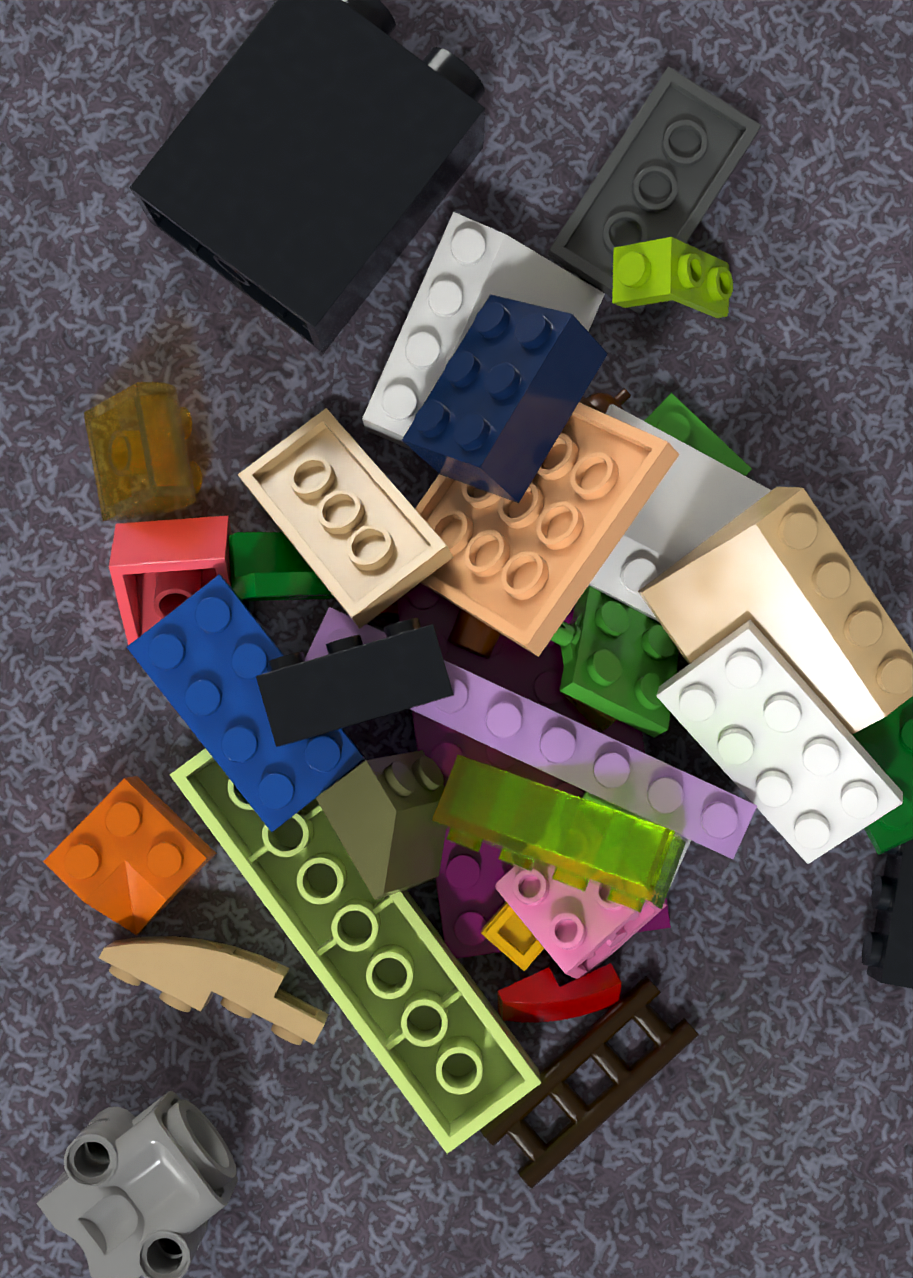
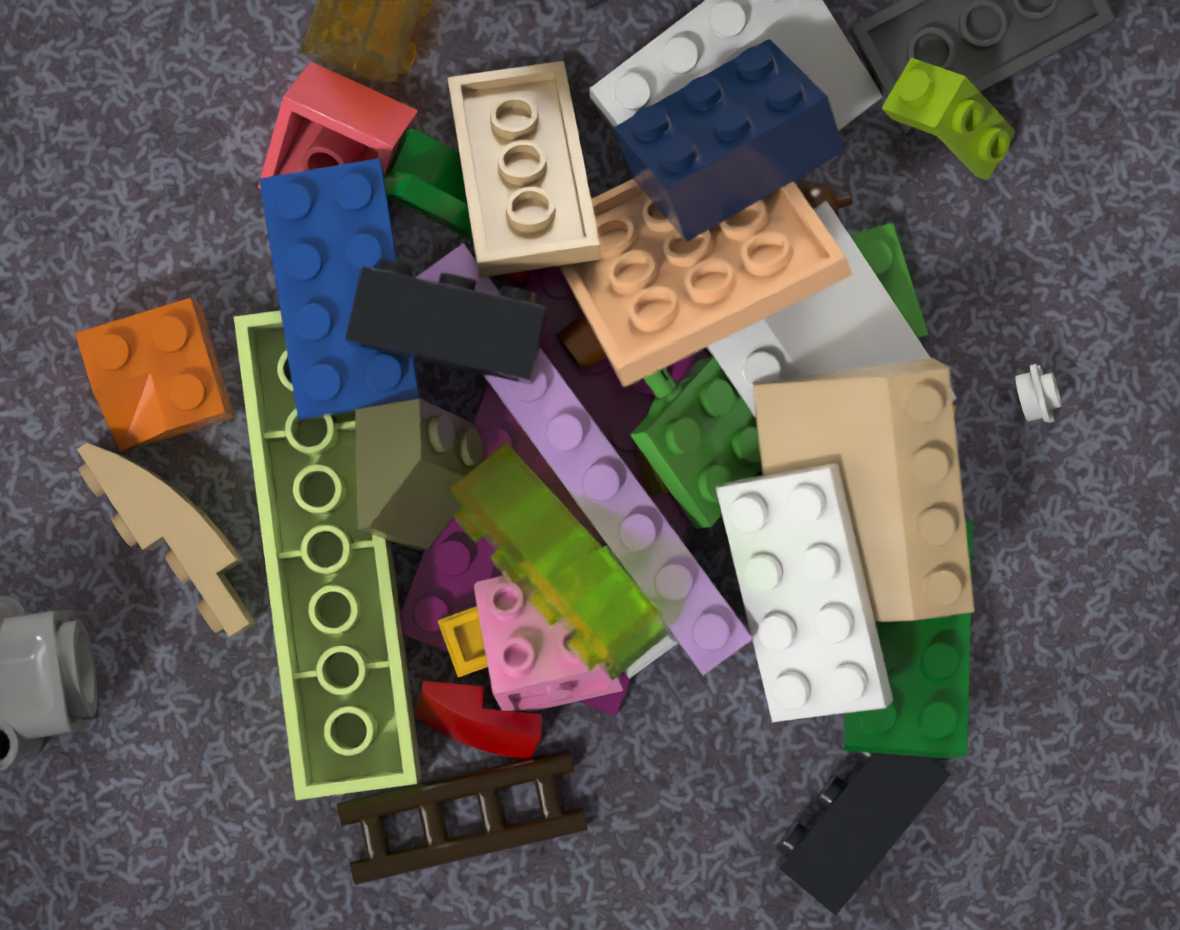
camera: 30 degrees right, 0 degrees up
(869, 468) = (1038, 394): none -> white plate

